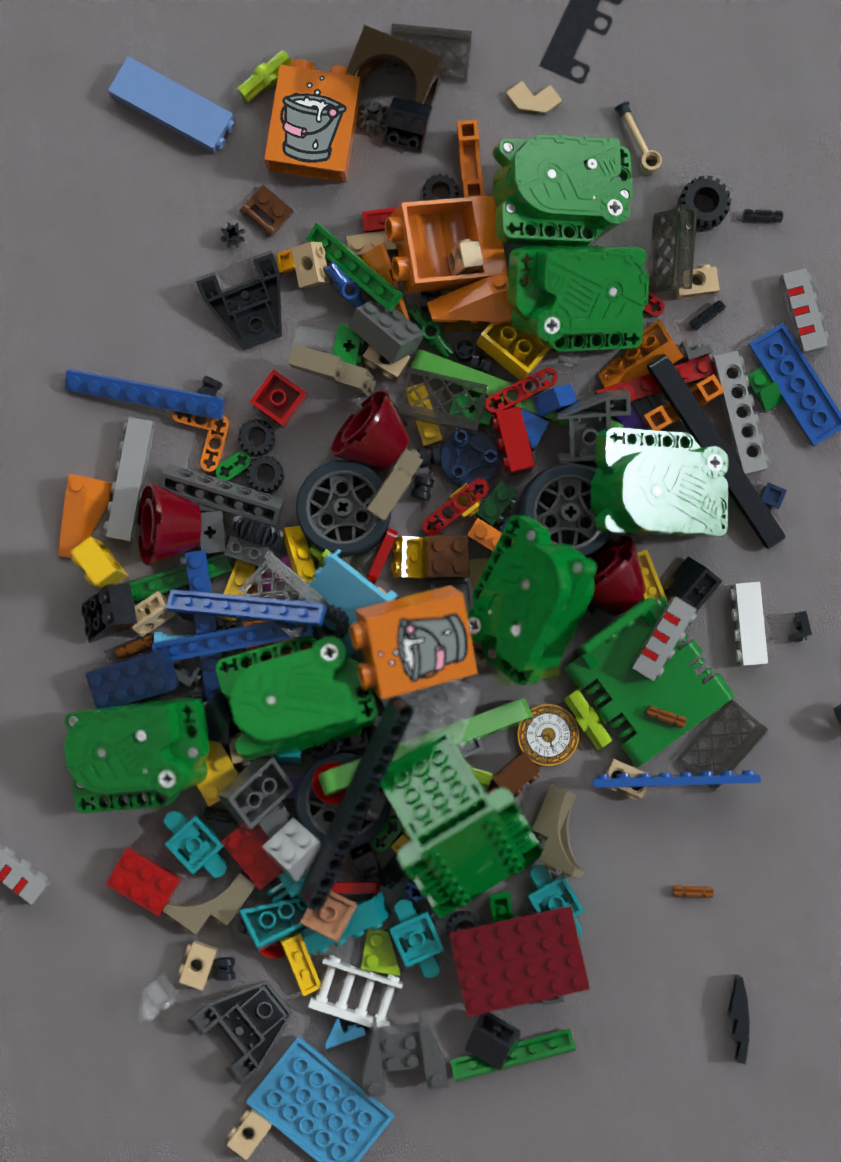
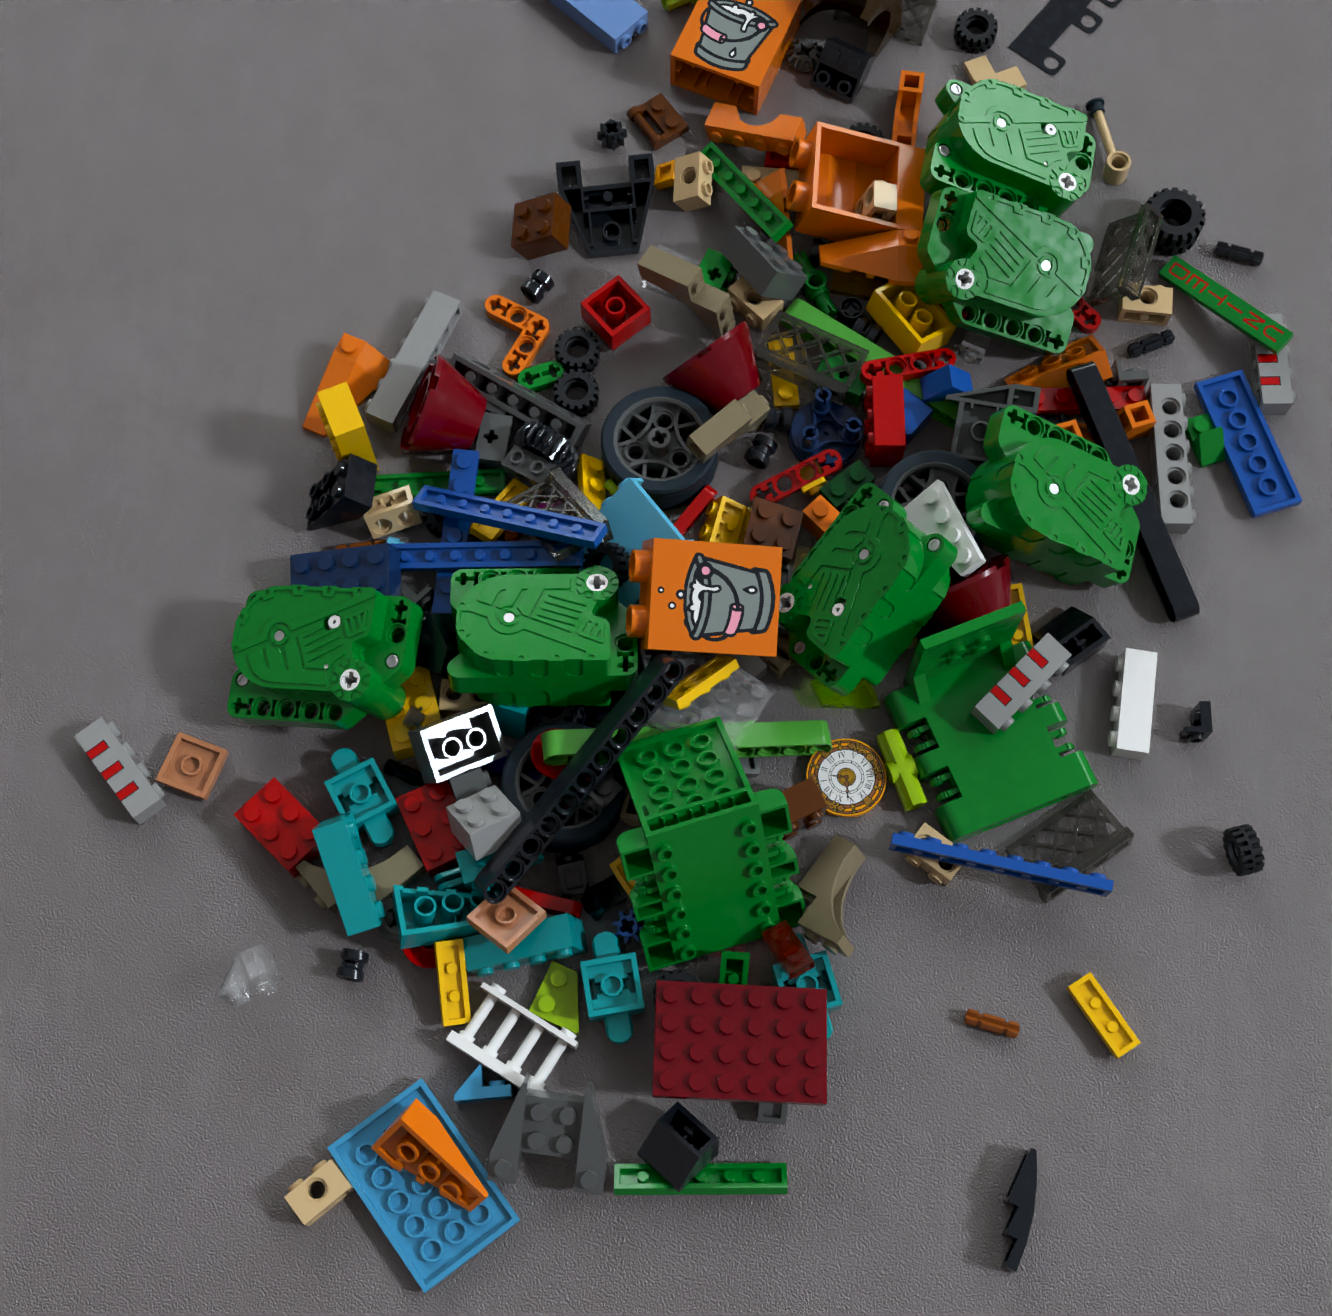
camera: 15 degrees right, 15 degrees down
(61, 851) = (192, 766): none -> nougat plate
(144, 394) = (461, 272): blue plate -> none
(194, 977) = (319, 967): tan brick -> none
(199, 338) = (541, 226): none -> reddish brown brick
(204, 909) = (349, 873): none -> teal wedge
(218, 780) = (414, 718): none -> clear smoke plate
(250, 1021) = (364, 1042): black wedge -> none
(315, 1086) = (425, 1149): none -> orange wedge
(341, 281) = (724, 204): blue pin -> none
(374, 206) = (777, 136): none -> orange arch
(391, 837) = (602, 845): green beam -> none
(425, 704) = (701, 681): none -> yellow plate
(513, 47) = (972, 41): none -> black tyre
(536, 882) = (788, 949): none -> clear red plate
(577, 531) = (936, 513): none -> white wing
(666, 716) = (1004, 782): dark orange axle -> none
(760, 270) = (1226, 305): none -> green tile
(771, 866) = (1103, 1015): none -> yellow plate
(773, 495) = (1193, 560): dark blue plate -> none

